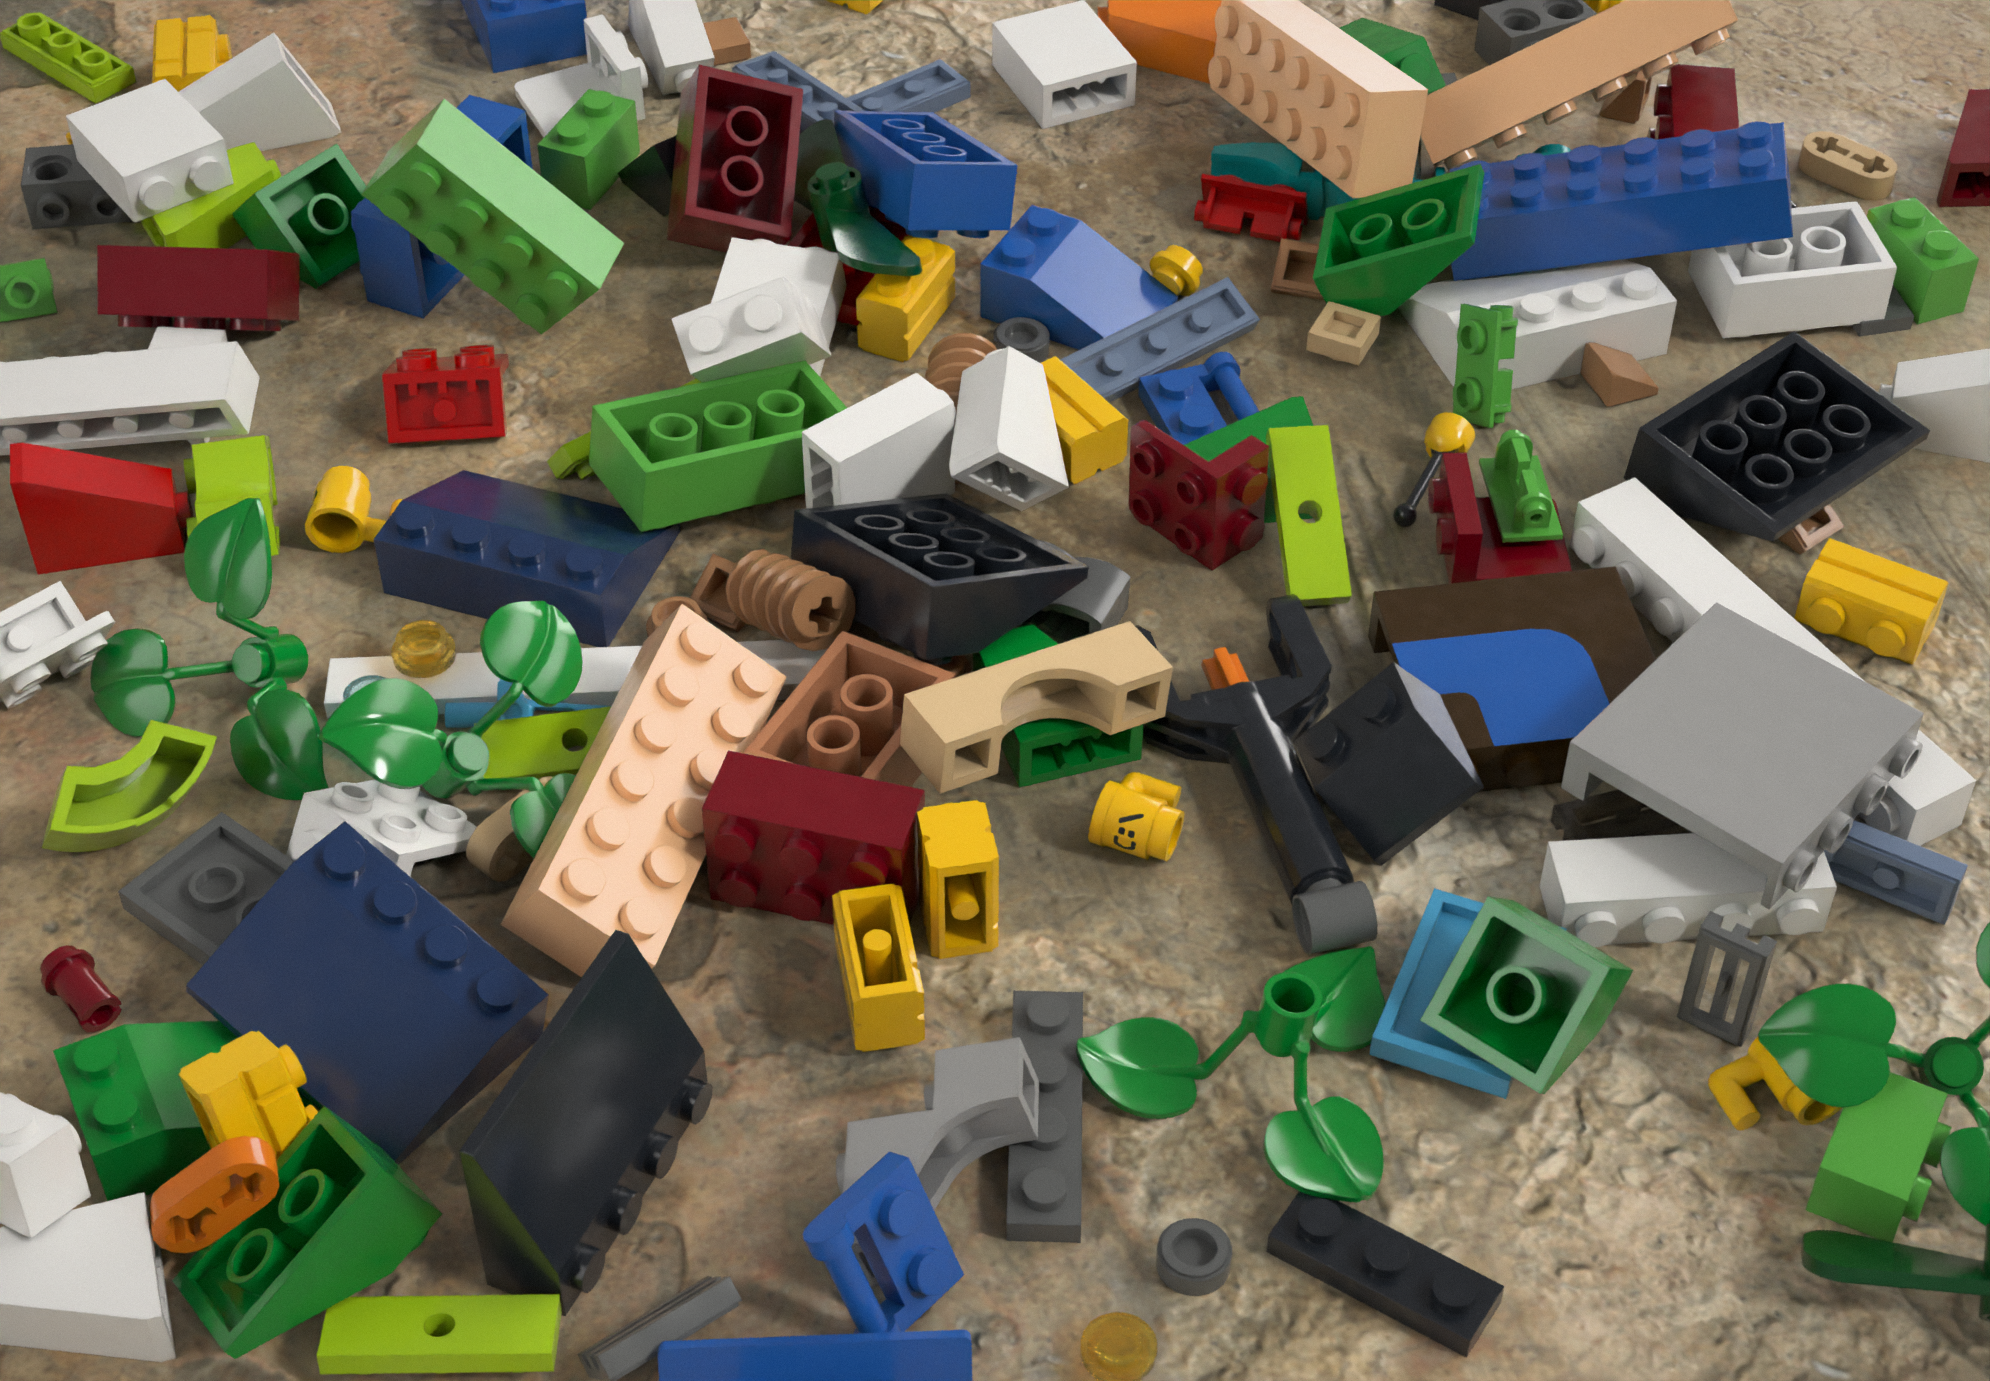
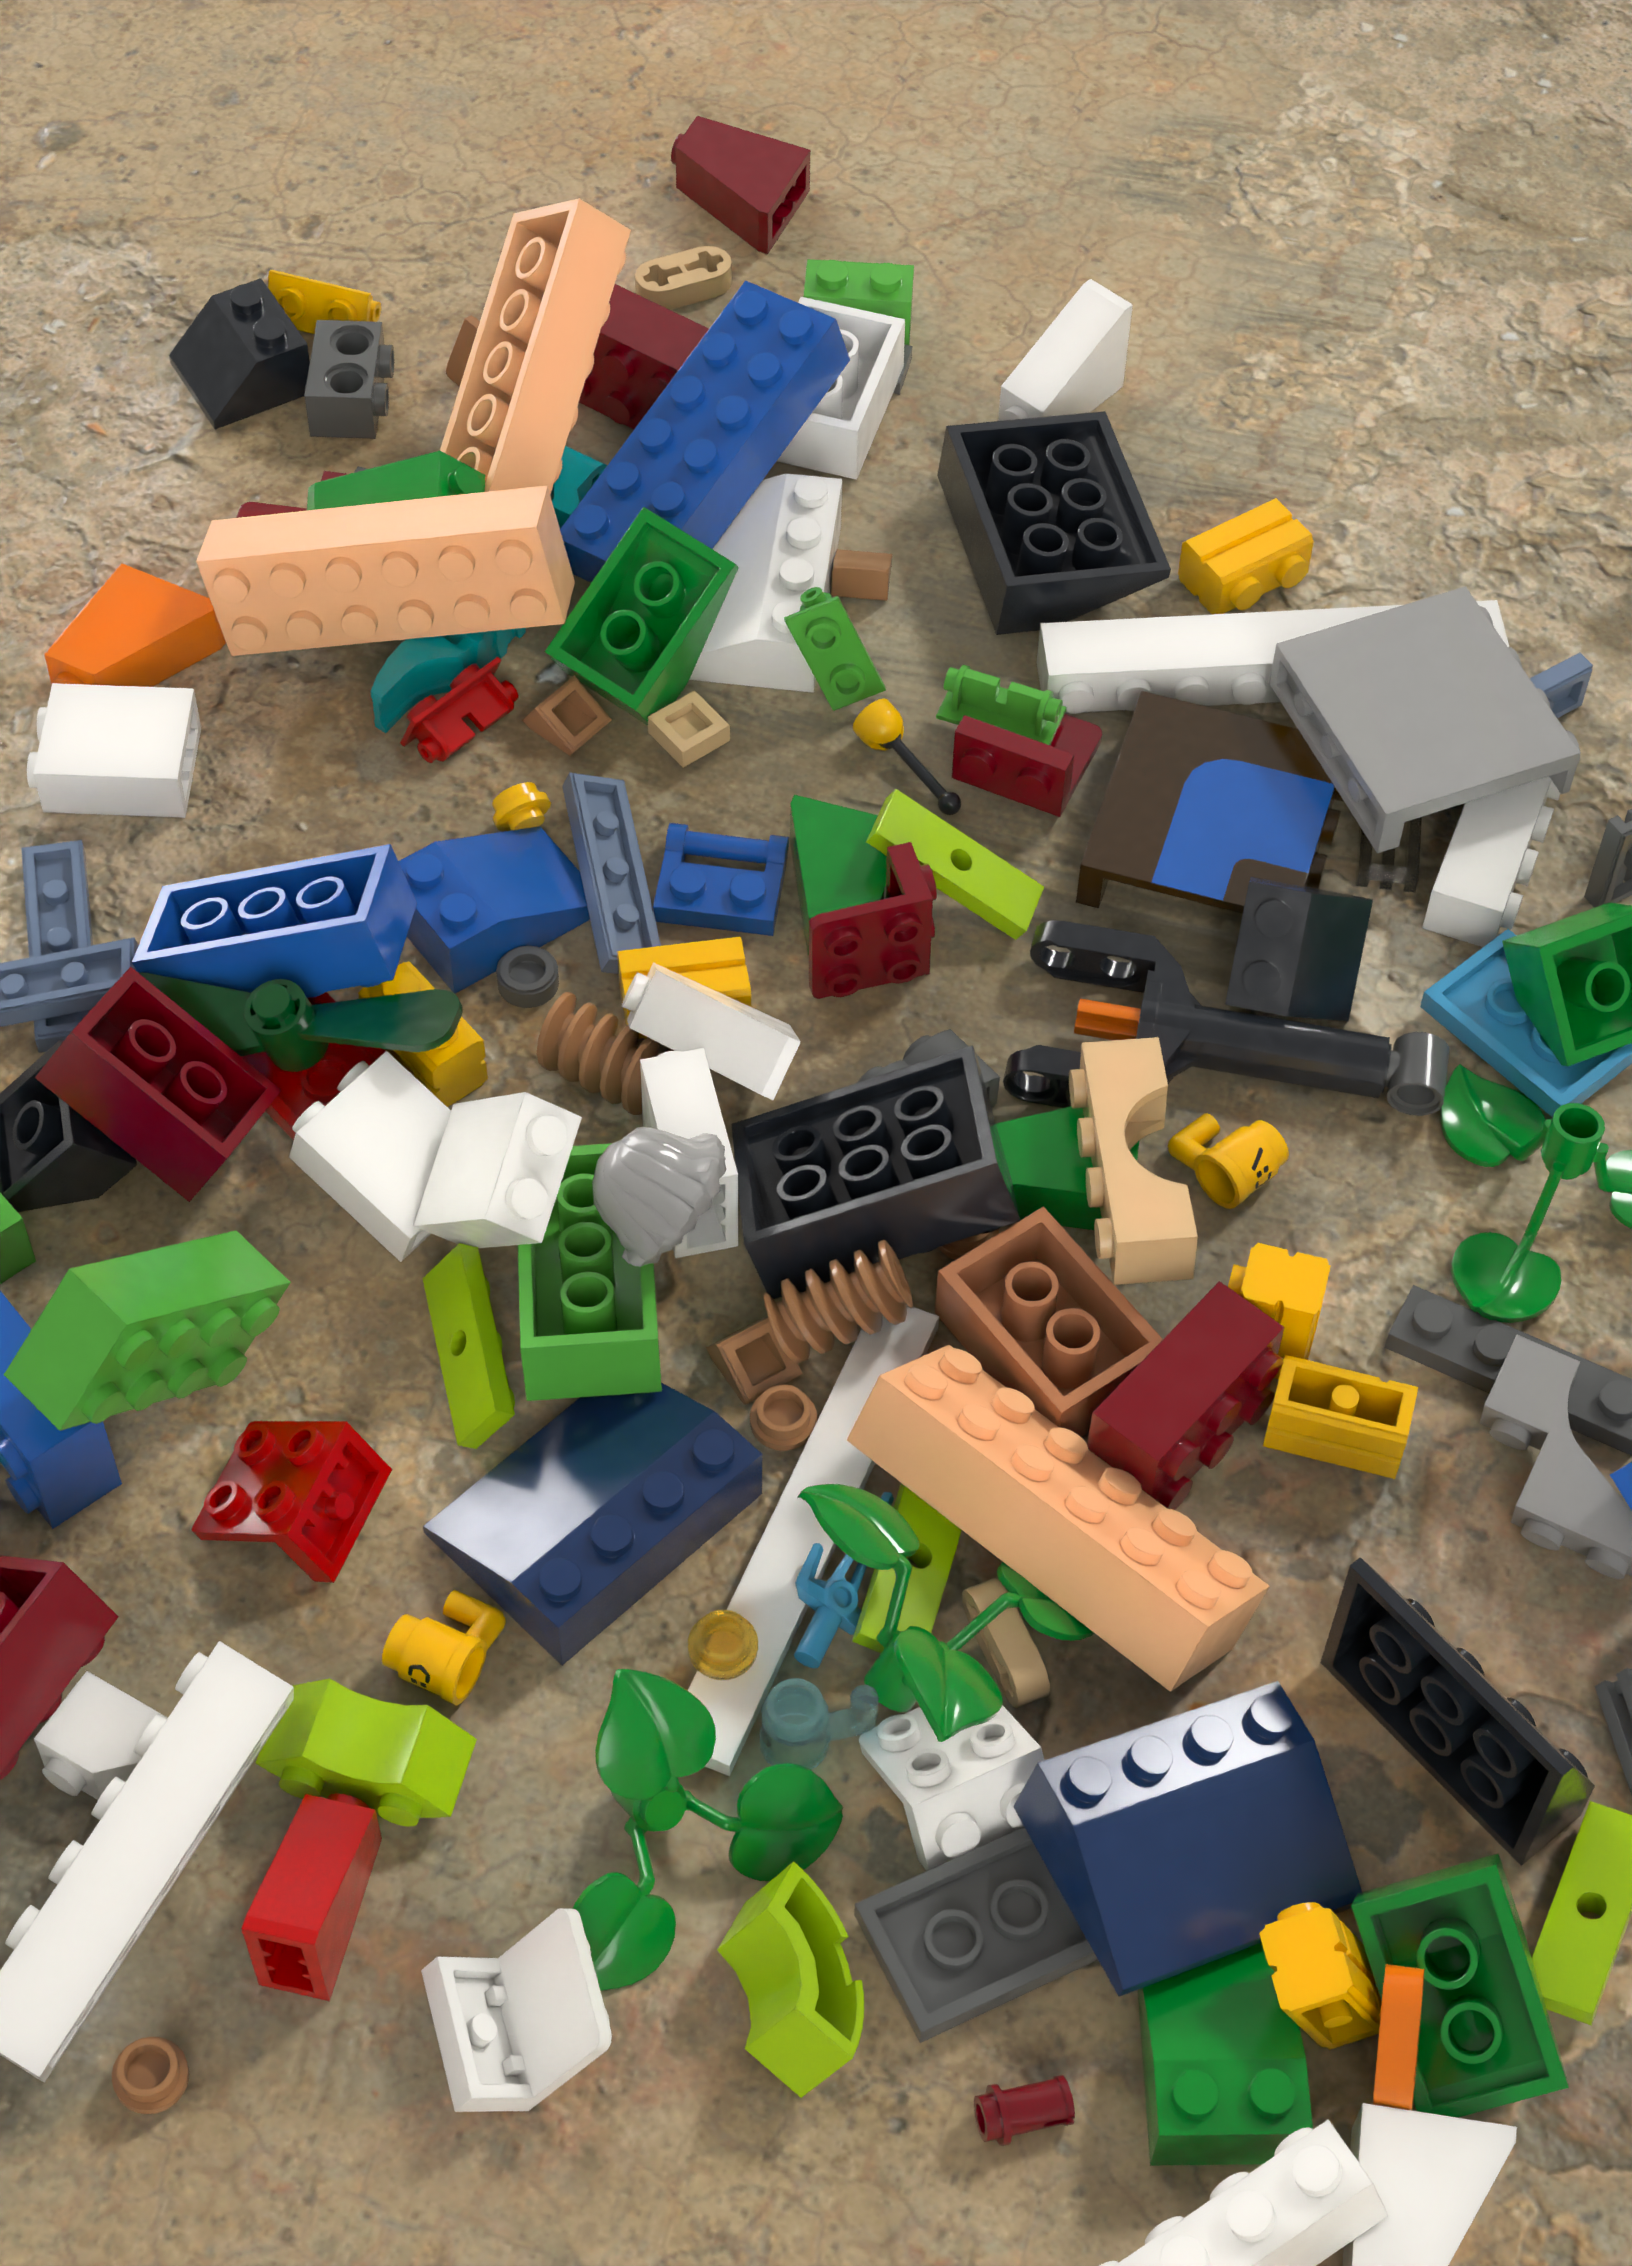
camera: 65 degrees left, 10 degrees up
(769, 393) = (656, 1188): none -> light grey hair

